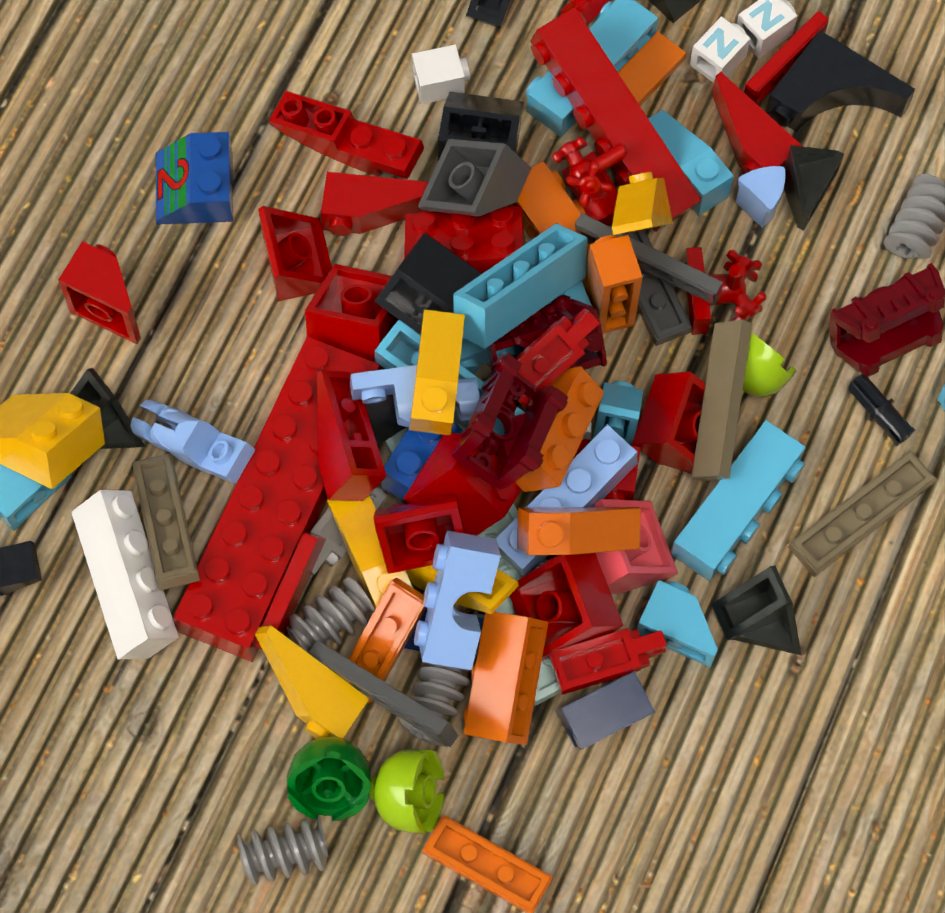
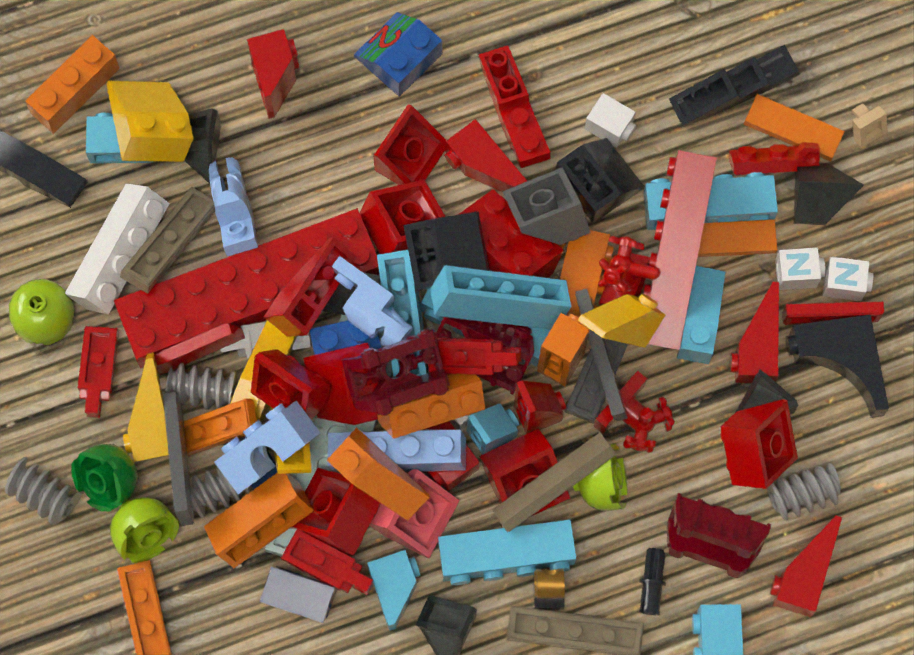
camera: 45 degrees right, 5 degrees up
(115, 713) = (41, 312): none -> lime cylinder
(215, 695) = (97, 367): none -> red hinge
(437, 372) = (386, 302): yellow slope -> none
(636, 357) = (537, 405): none -> red slope
(761, 192) = (724, 380): light blue tile -> none
(807, 494) = (549, 589): none -> pearl gold leg
(846, 215) = (759, 444): none -> red slope

